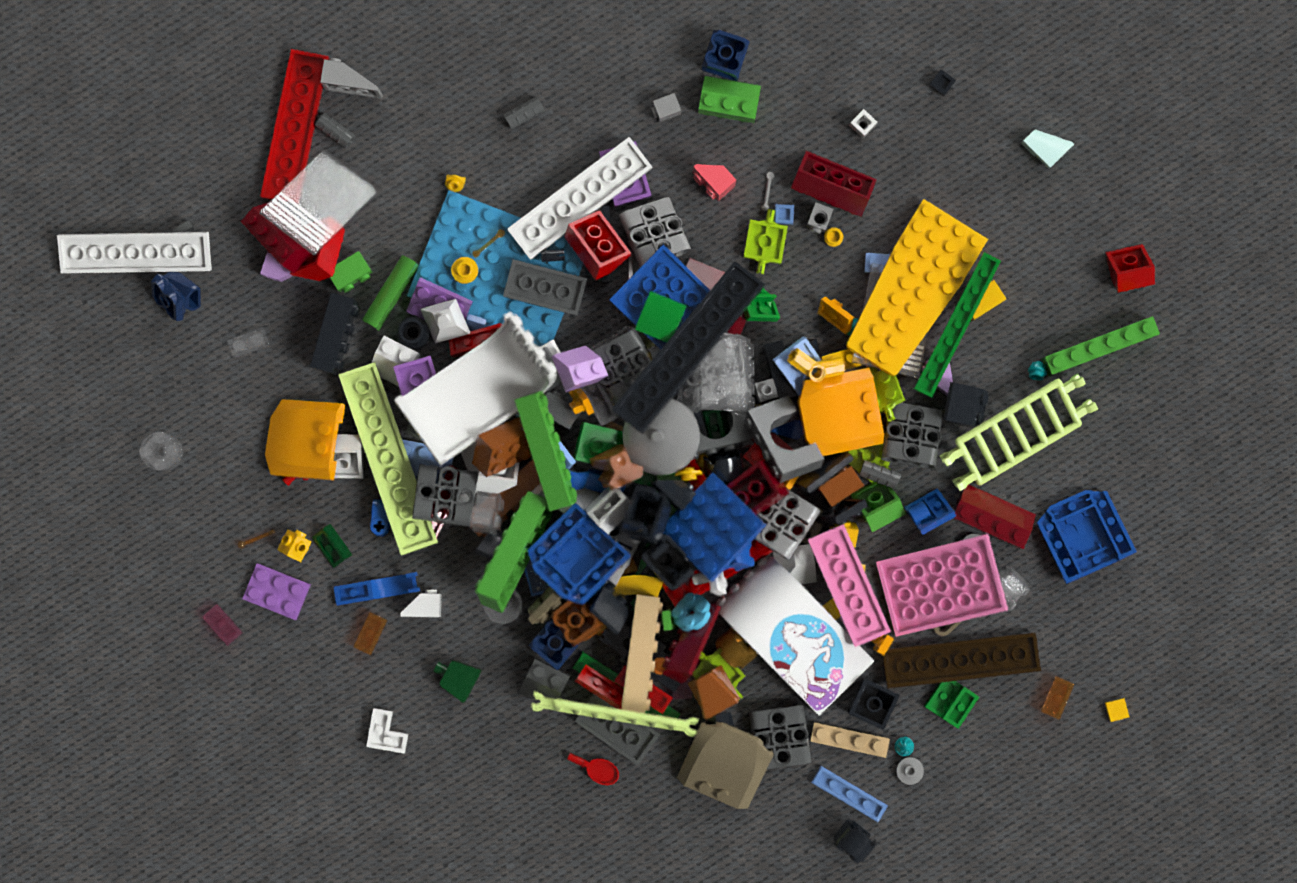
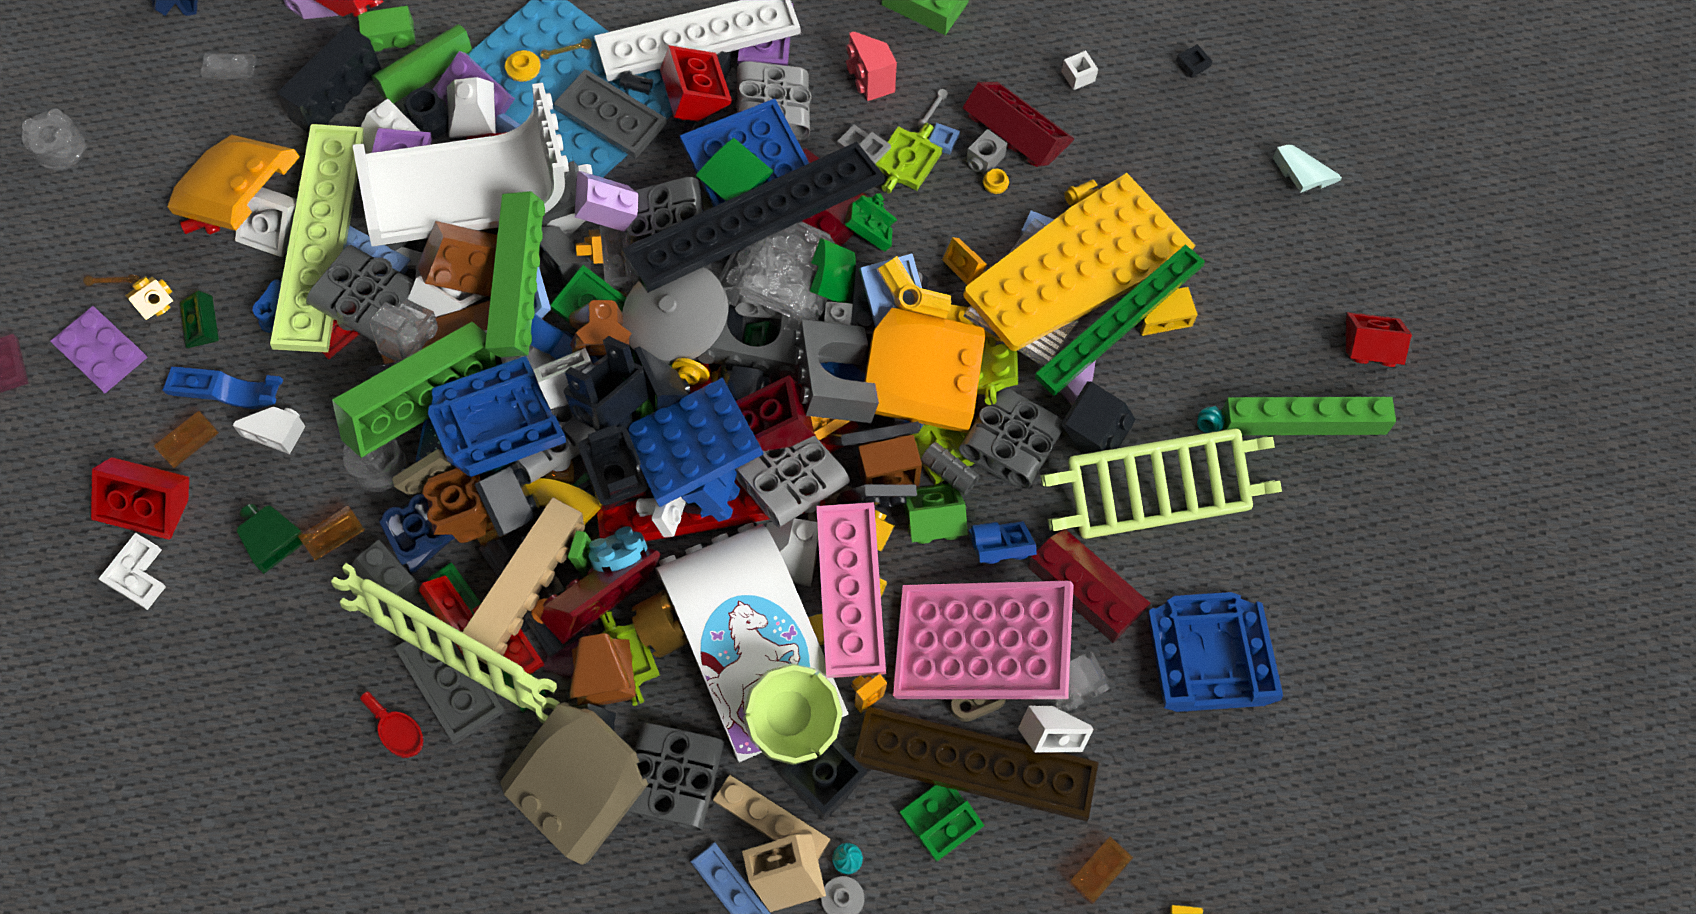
camera: 15 degrees right, 20 degrees down
(362, 684) = (138, 497): none -> red slope
(498, 661) = (331, 532): none -> clear orange plate
(731, 243) = (871, 143): none -> light grey slope
(754, 359) = (835, 272): none -> green slope
(845, 684) = (792, 714): none -> yellowish green plate
(871, 770) = (785, 872): none -> tan slope
(893, 228) = (1077, 194): none -> yellow pin
(1002, 624) = (1054, 730): none -> white slope

